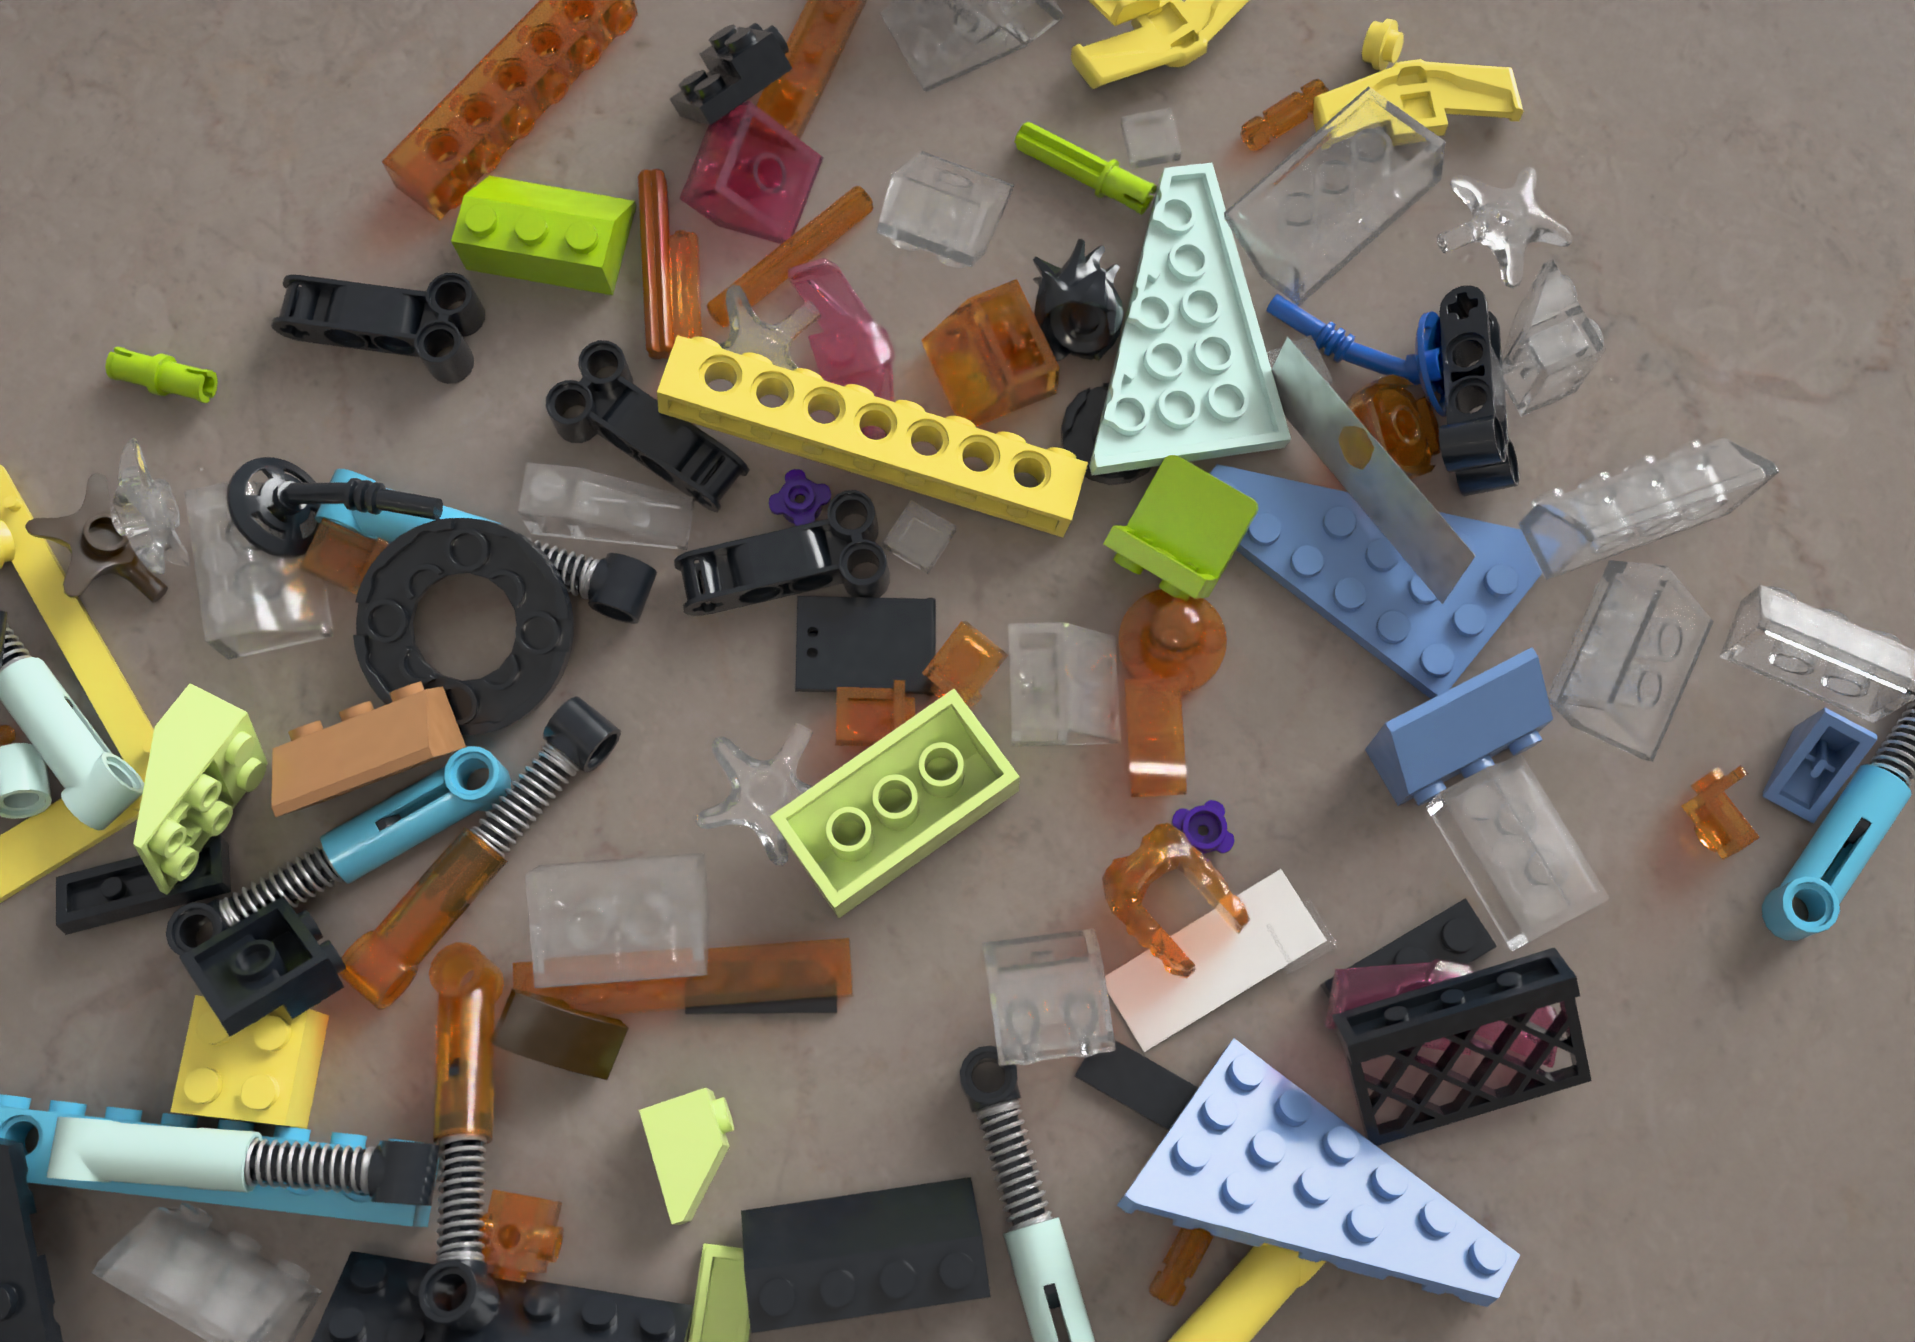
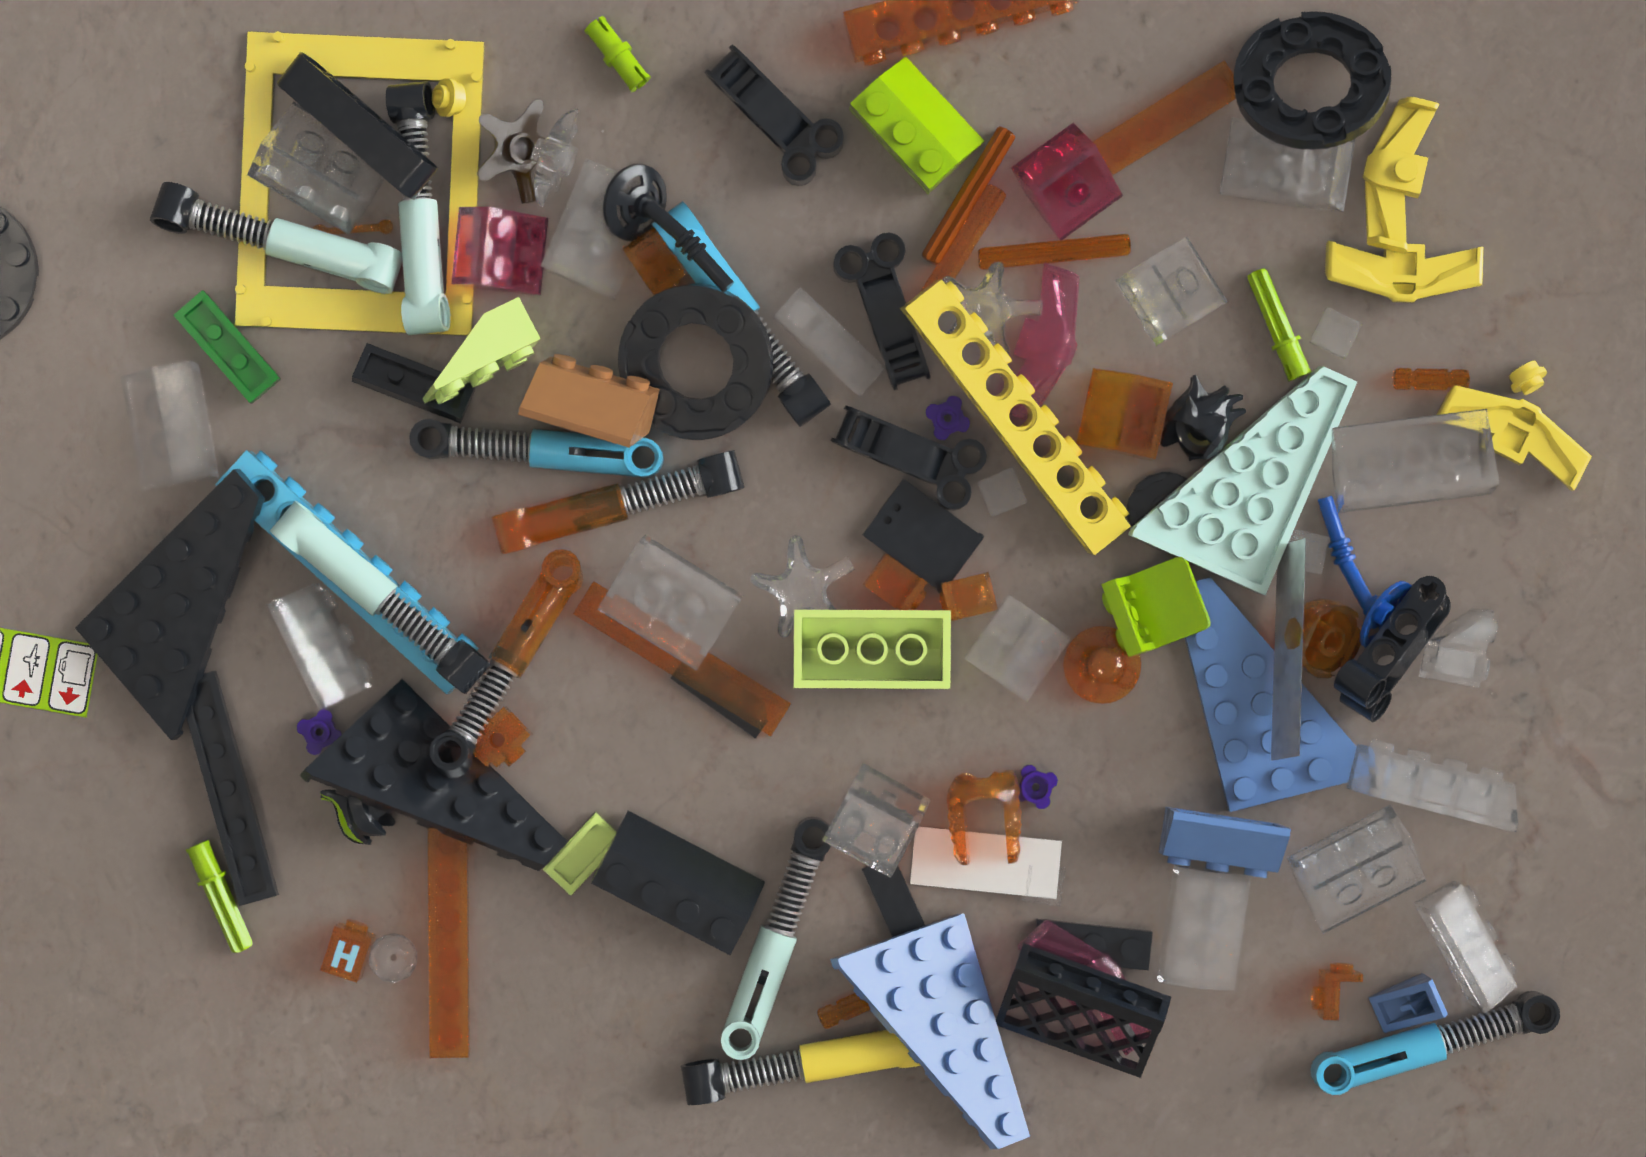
camera: 30 degrees right, 15 degrees up
(146, 659) = (499, 250): none -> clear pink slope
(254, 1075) = (412, 535): light yellow brick -> none
(264, 965) = (456, 491): black plate -> none
(559, 1035) = (592, 645): dark brown slope -> none
(687, 1147) = (622, 755): yellowish green slope -> none
(739, 67) = (1101, 110): black plate -> none
(1155, 736) = (1048, 715): clear orange slope -> none
(1504, 222) = (1506, 550): clear animal -> none

